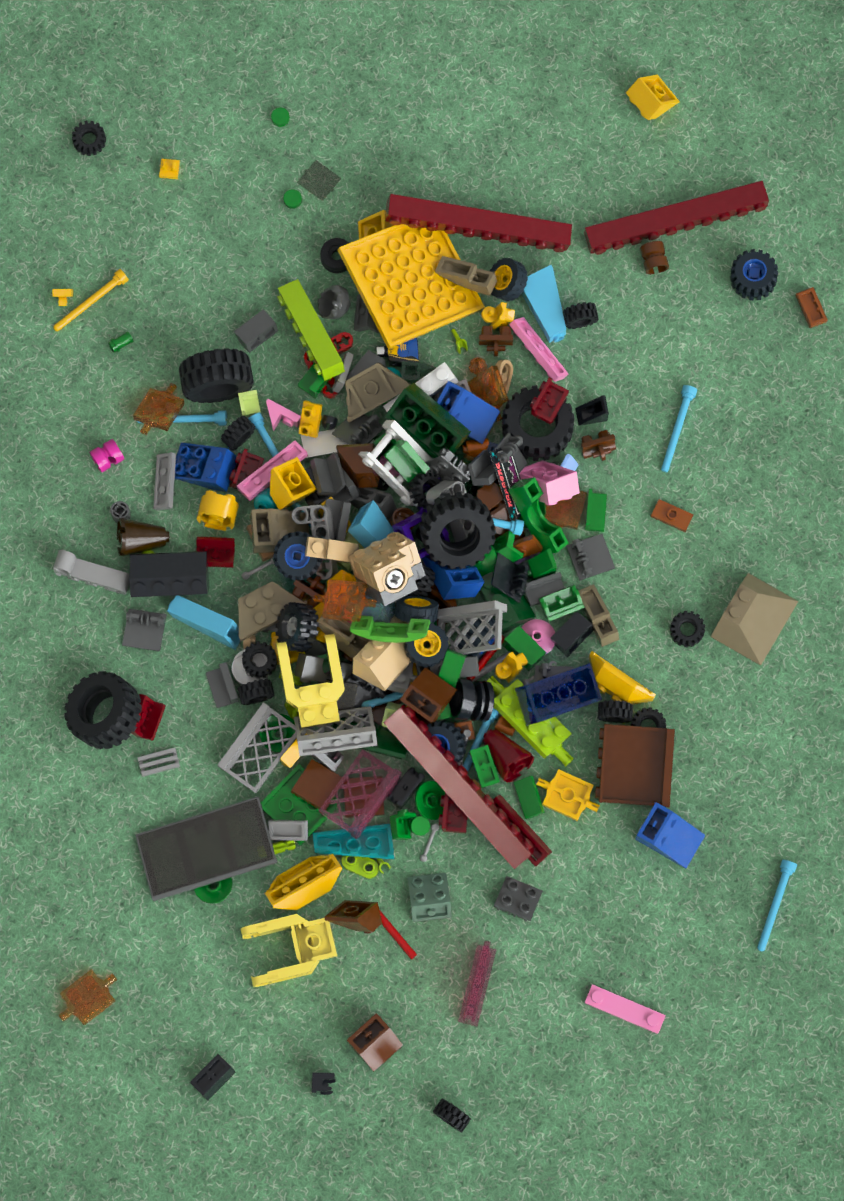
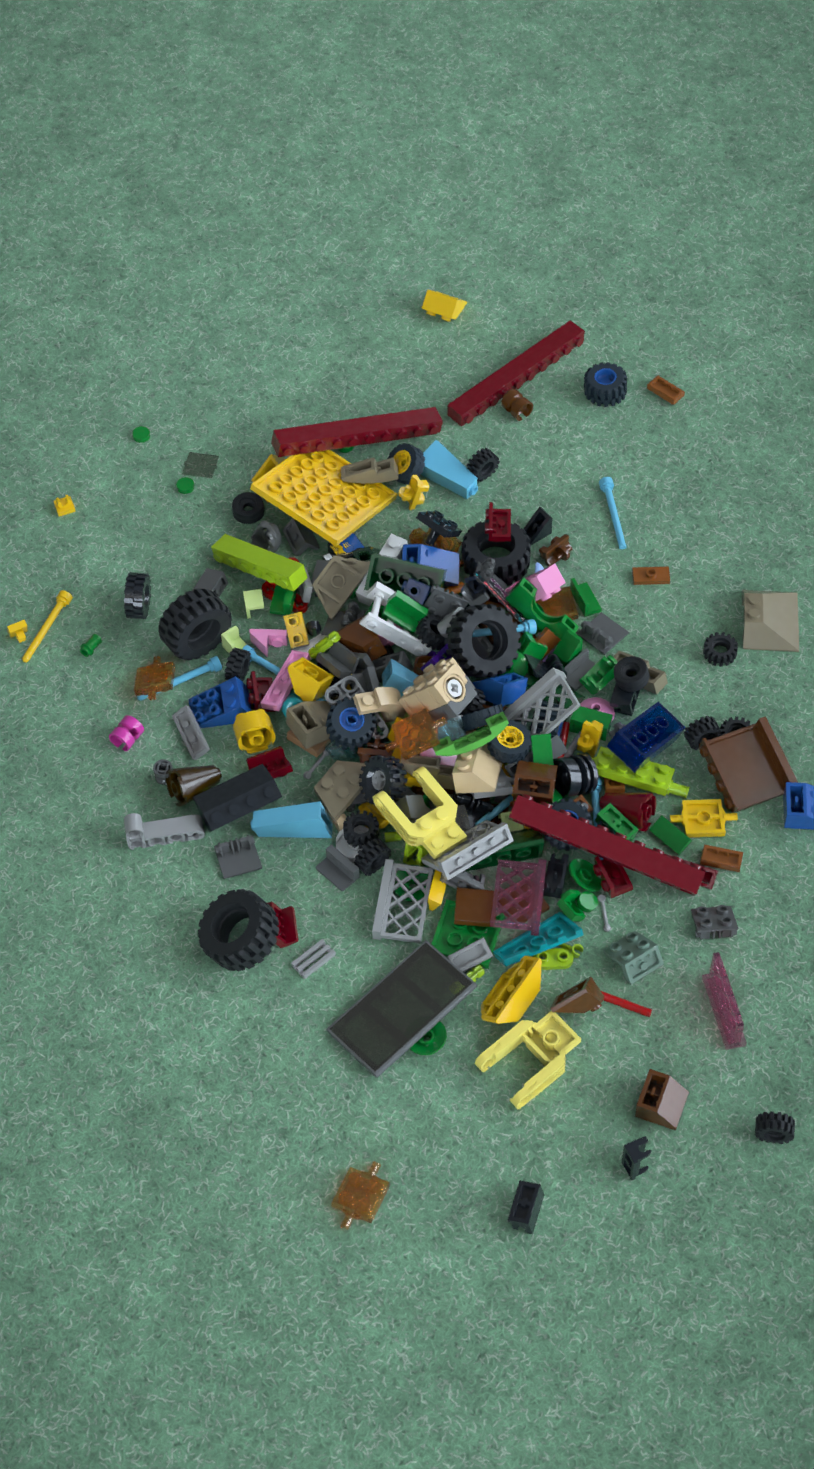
camera: 25 degrees left, 20 degrees down
(183, 312) = (137, 595): none -> black wheel
(287, 367) = (253, 600): none -> yellowish green panel
(323, 452) = (324, 644): none -> lime axle
(427, 444) = (423, 590): none -> dark blue brick
(459, 342) = (393, 527): lime hand -> none
(492, 375) = (438, 526): none -> black plate
(493, 341) = (425, 505): reddish brown hips -> none
(538, 348) = (455, 503): bright pink plate -> none
(560, 842) = (721, 858): none -> dark orange plate
(576, 613) = (634, 683): none -> black tyre
(617, 683) = (691, 707): yellow wedge -> none

